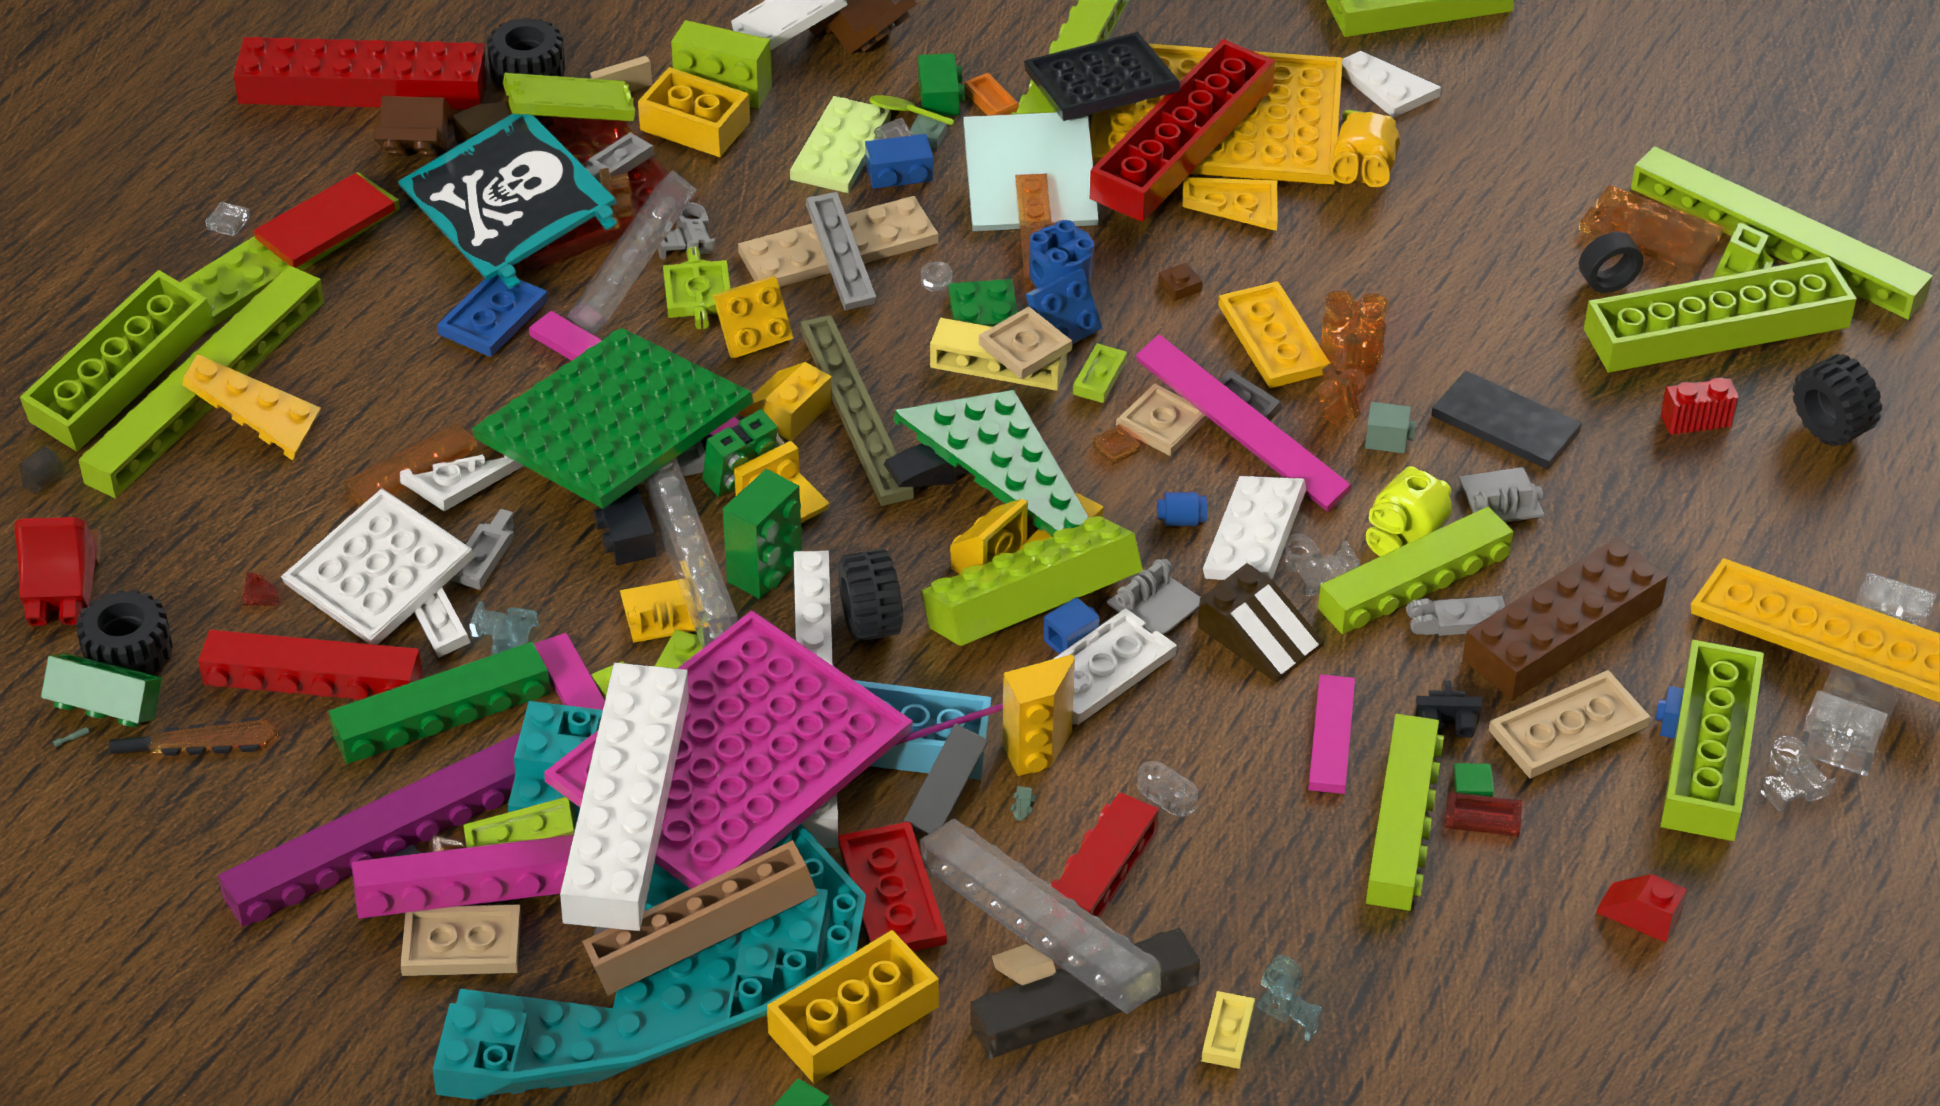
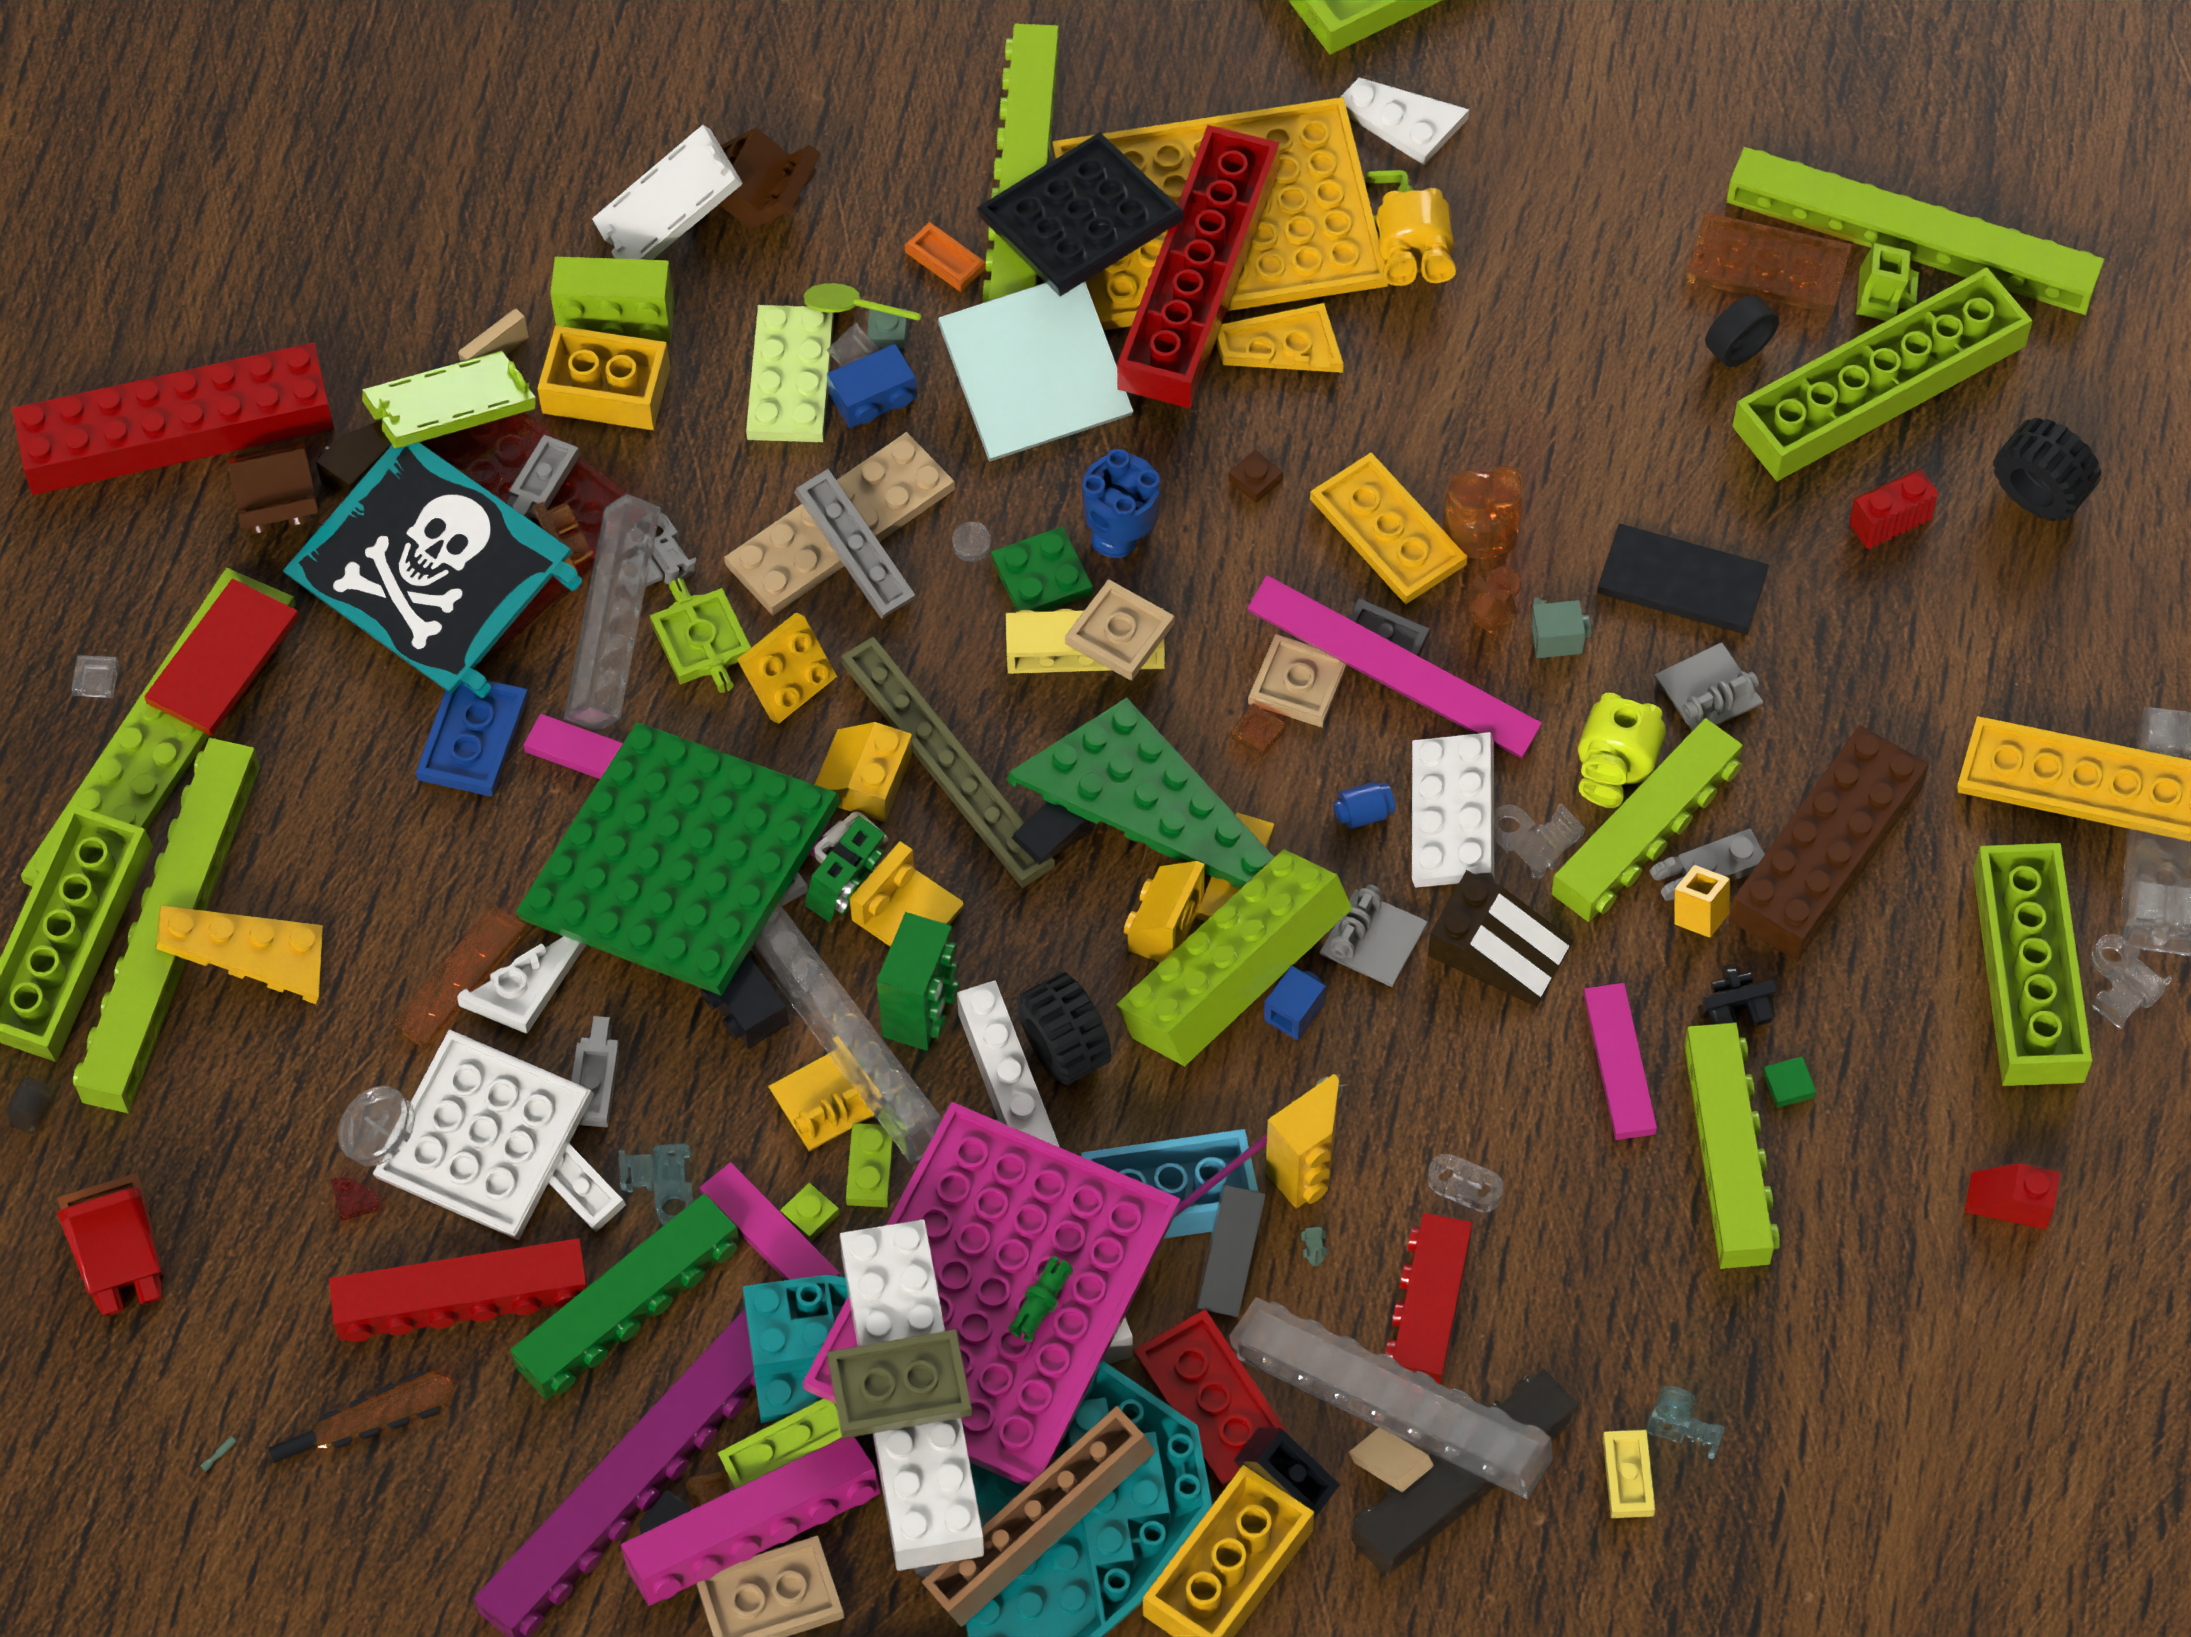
camera: 15 degrees left, 15 degrees up
(101, 689) = (234, 1388): brick -> none
(126, 631) = (223, 1280): black tyre -> none
(296, 541) = (376, 1125): none -> clear tile
(525, 48) = (361, 316): black tyre -> none
(612, 769) = (899, 1383): none -> olive plate
(764, 758) = (1041, 1299): none -> green pin
(932, 943) = (1288, 1467): none -> black brick
(940, 84) = (879, 257): green brick -> none
(1032, 210) = (1061, 436): clear orange plate -> none
(1067, 305) = (1145, 560): blue plate -> none
(1100, 373) = (1209, 636): lime plate -> none
(1114, 660) = (1346, 1037): white piece -> none
(1440, 631) = (1702, 901): none -> yellow brick
(1483, 814) = (1812, 1121): clear red tile -> none
(1569, 724) = (1871, 980): tan plate -> none
(1669, 710) = (1974, 936): blue plate -> none

